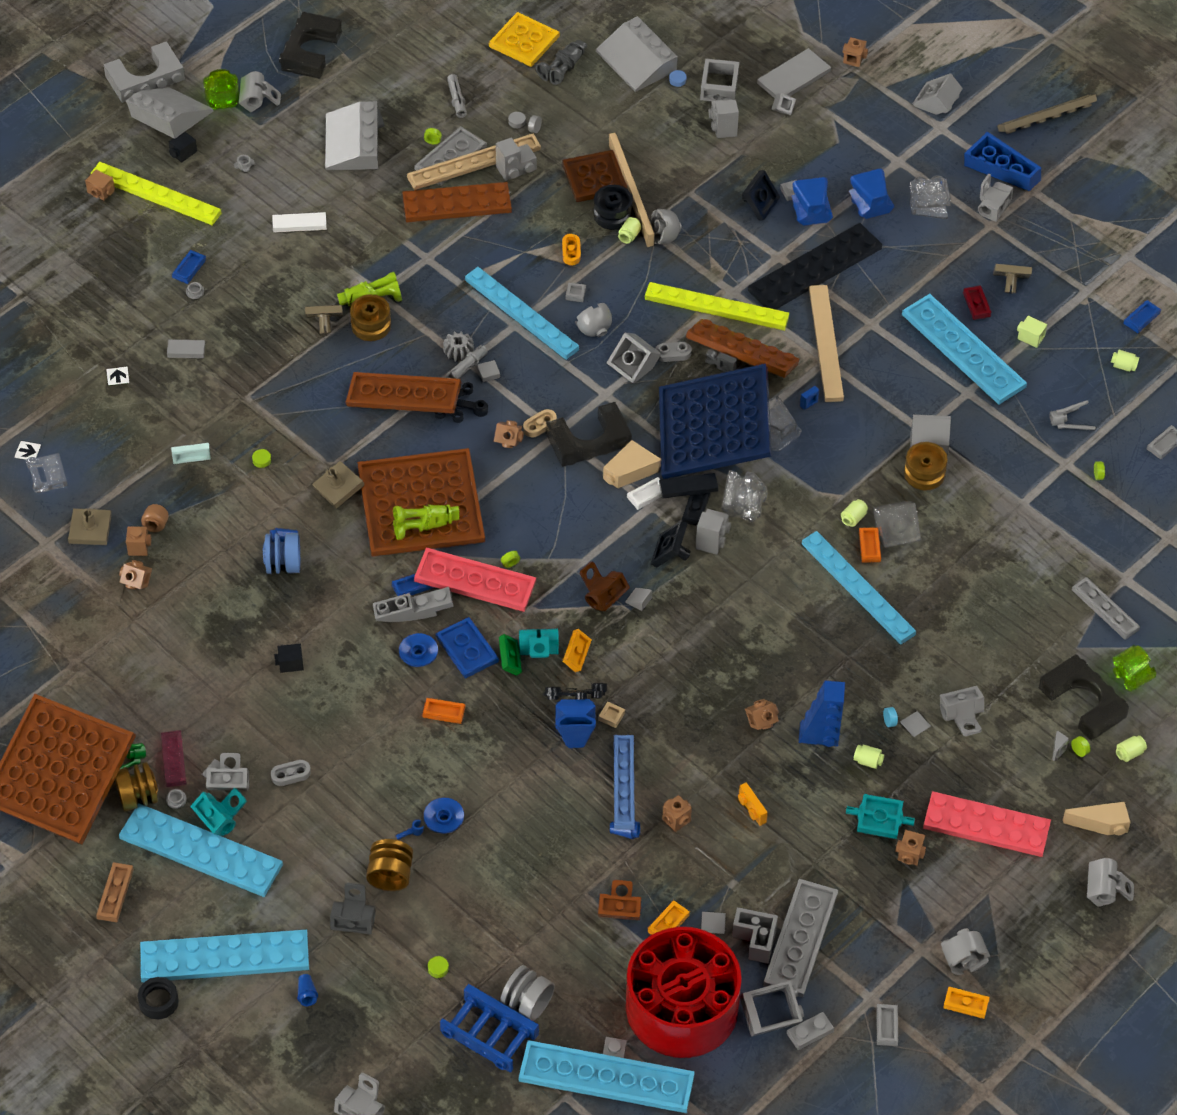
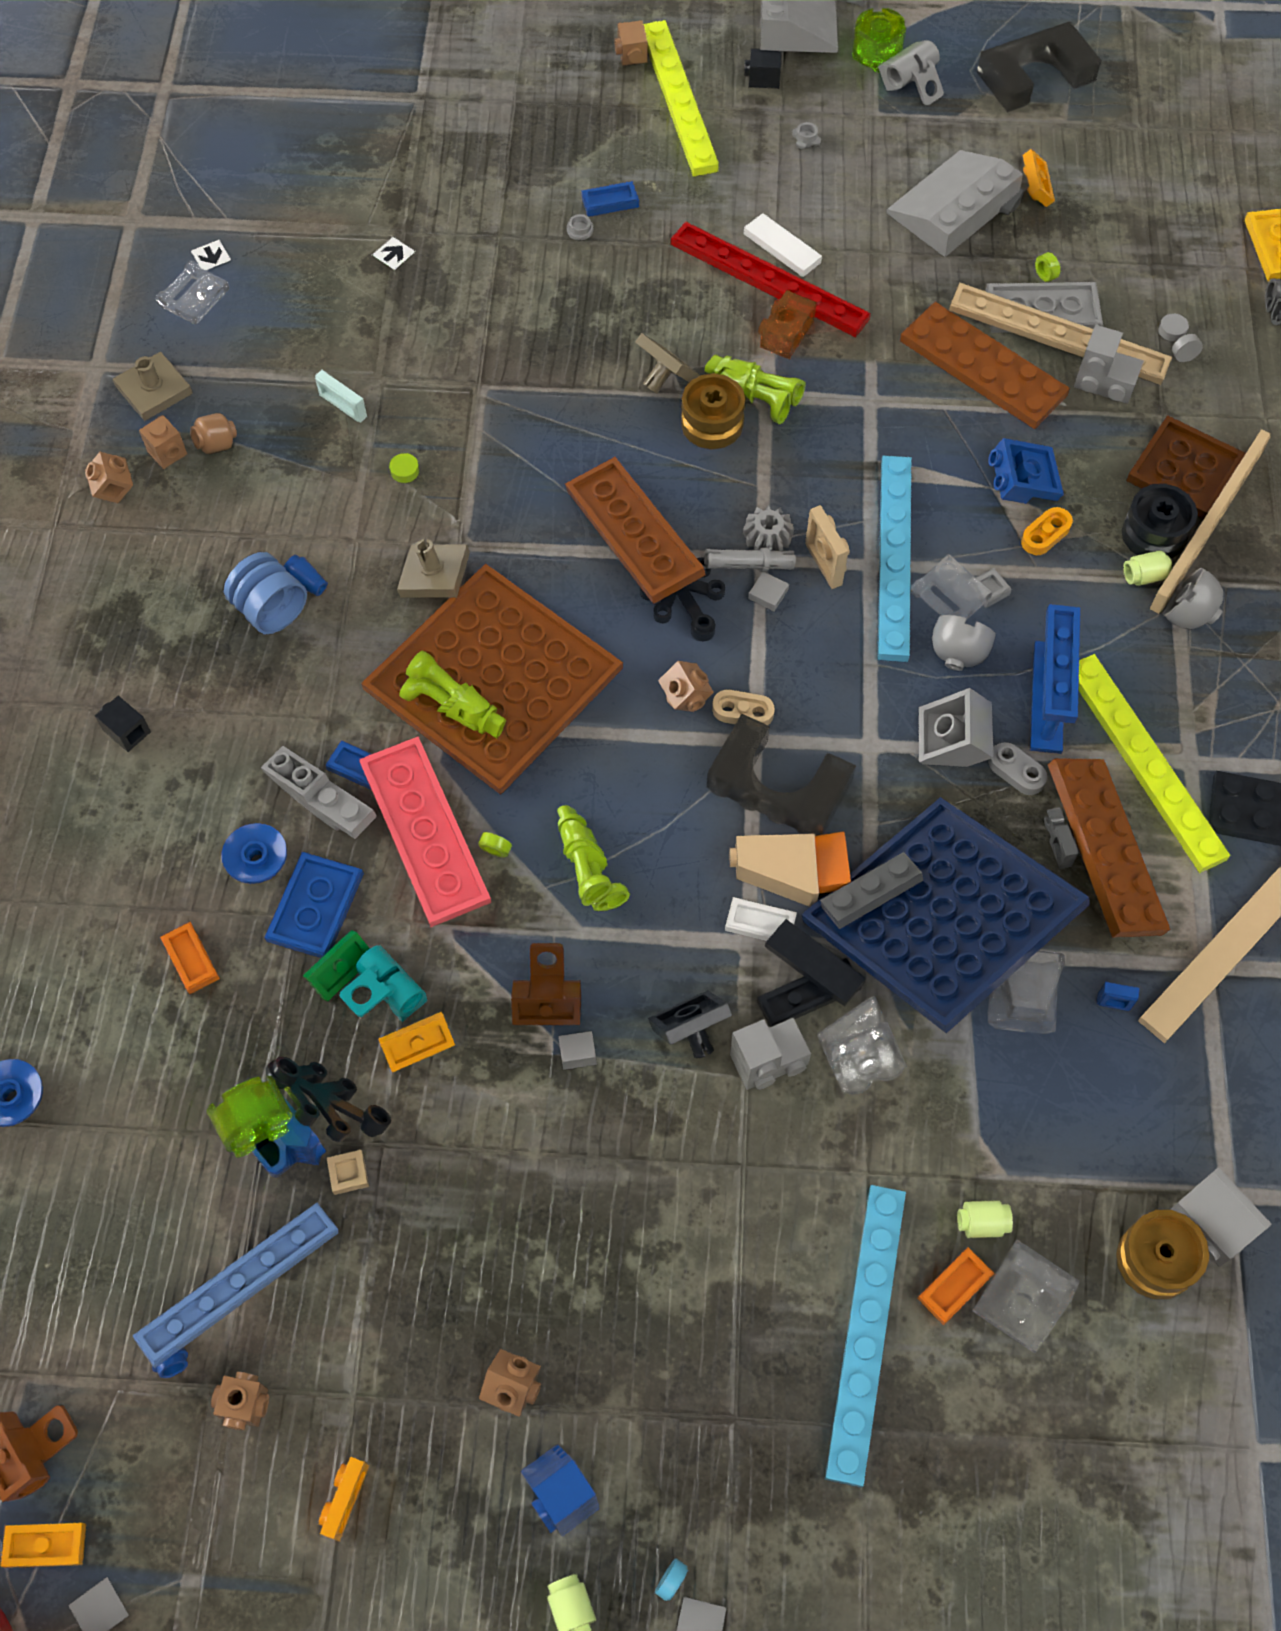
camera: 50 degrees right, 10 degrees up
(186, 348) = (491, 281): light grey tile -> none
(312, 242) = (768, 277): none -> red tile
(351, 254) = (787, 324): none -> clear orange brick
(383, 102) = (1038, 178): none -> light orange plate
(458, 100) = (1134, 245): light grey pin -> none
(495, 330) = (826, 546): none -> tan plate
(533, 232) = (1025, 471): none -> blue plate
(556, 530) = (589, 861): none -> lime piece
(563, 302) = (956, 584): none -> clear plate
(567, 708) = (250, 1115): none -> clear neon green brick
(651, 444) = (832, 862): none -> orange tile
(658, 294) = (1055, 679): none -> blue fence
(679, 439) = (871, 890): none -> dark grey plate

